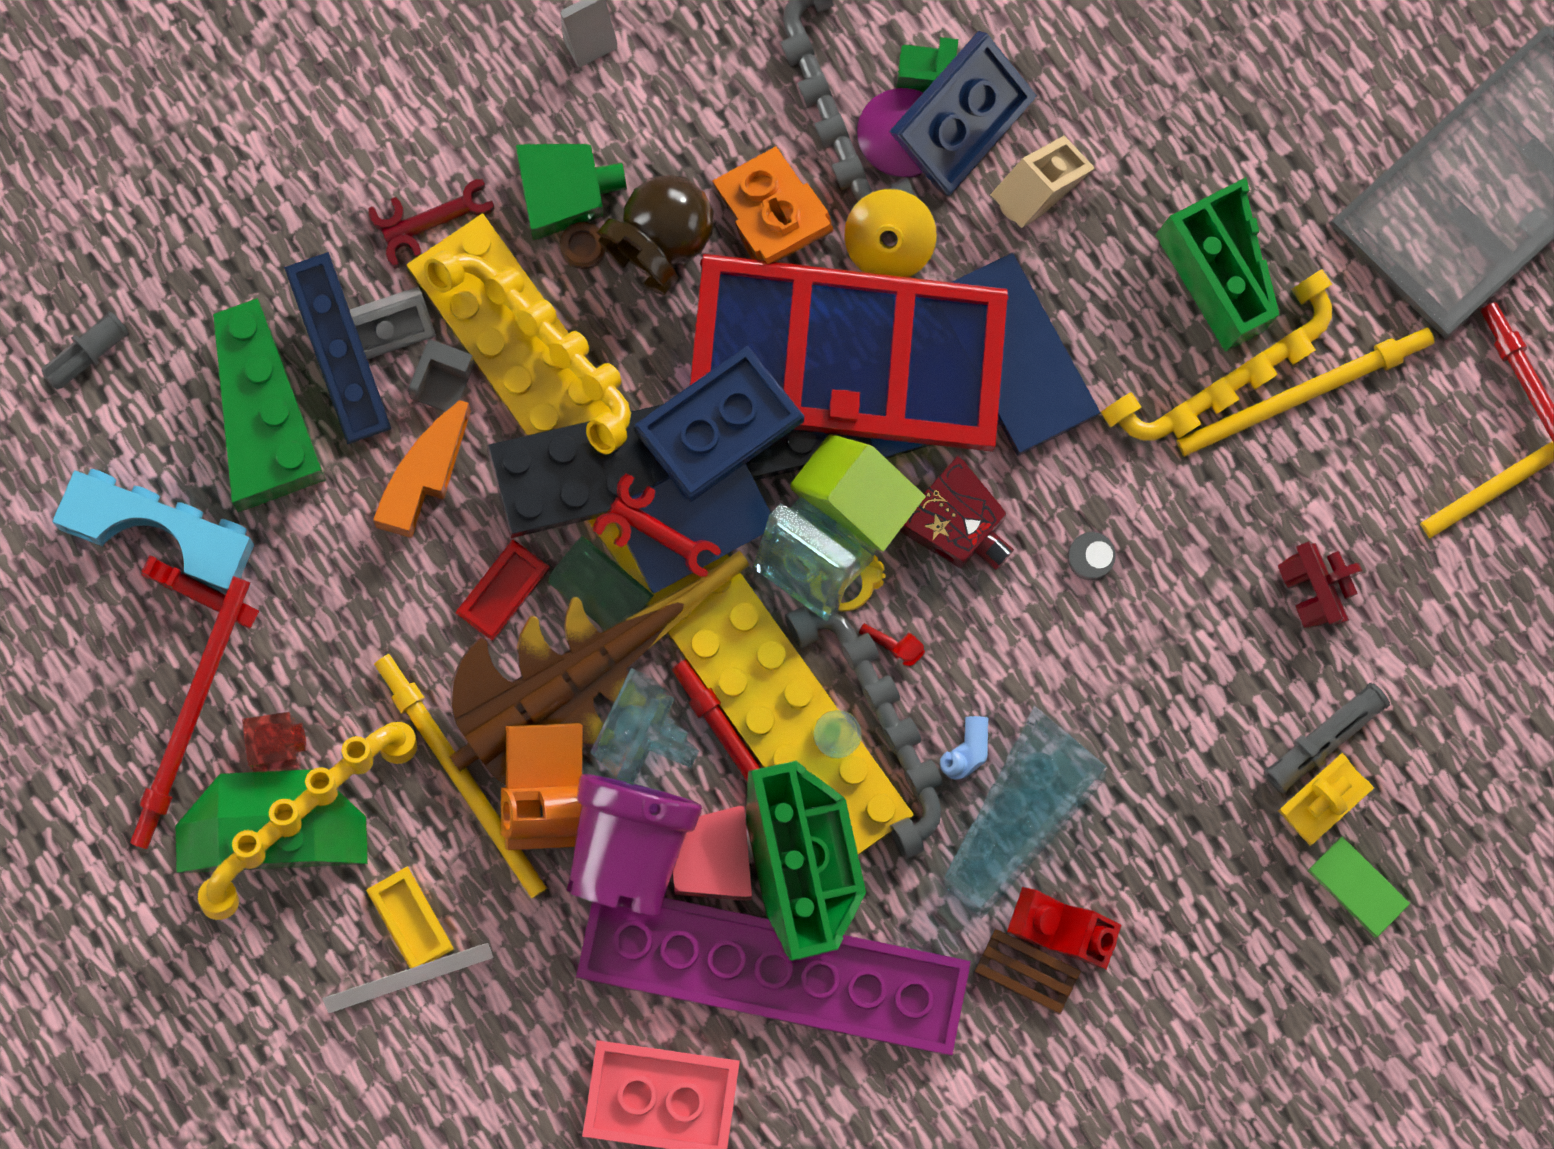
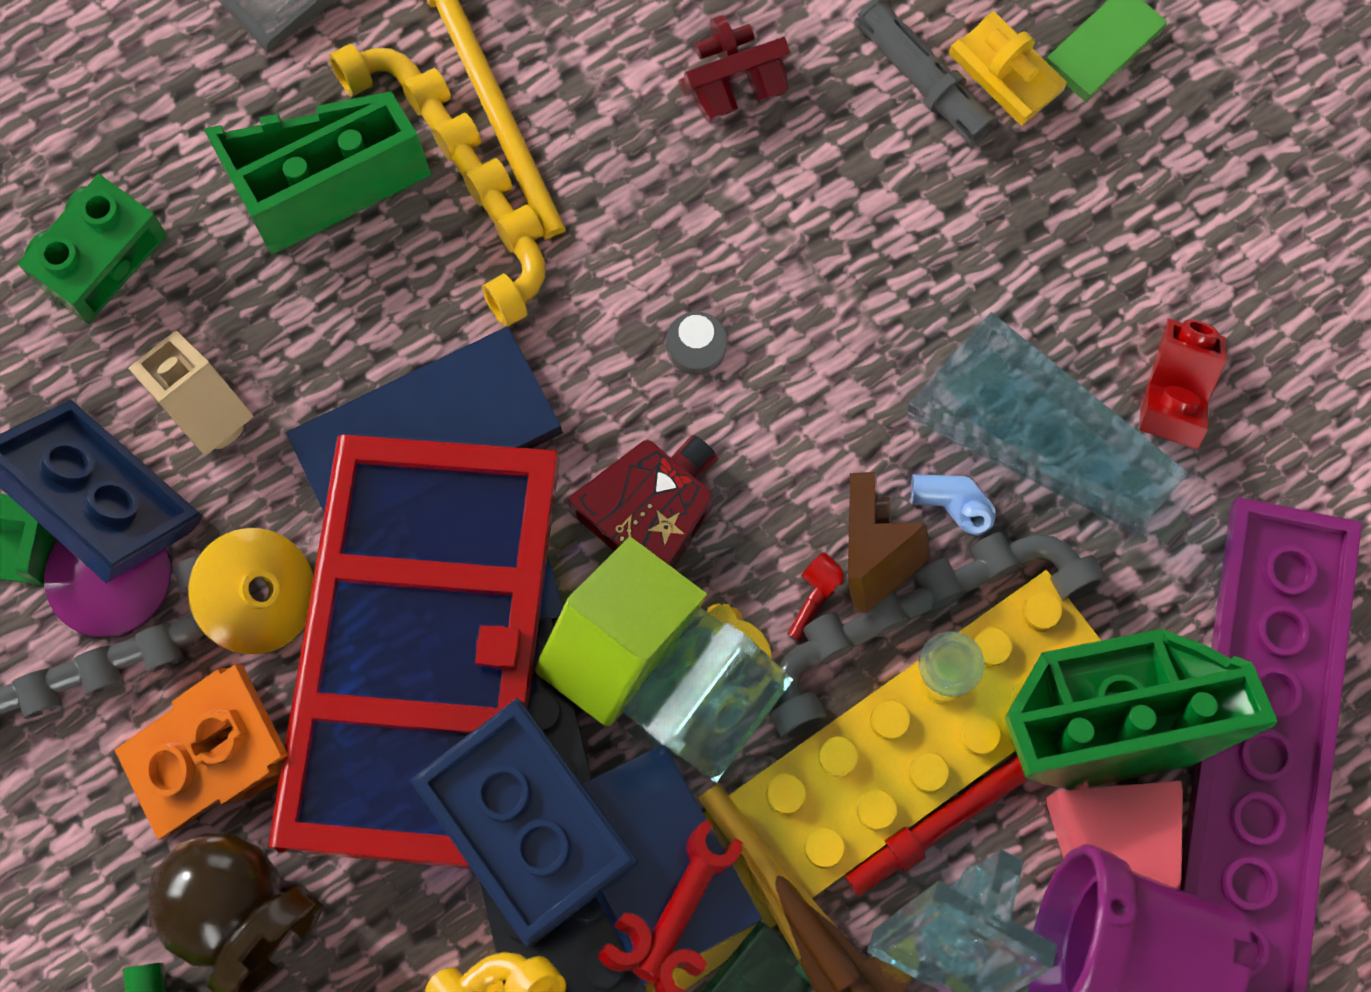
camera: 85 degrees left, 5 degrees down
(923, 680) = (879, 551): none -> reddish brown slope
(1064, 989) = (1257, 388): reddish brown tile -> none
(1155, 102) = (92, 247): none -> green brick

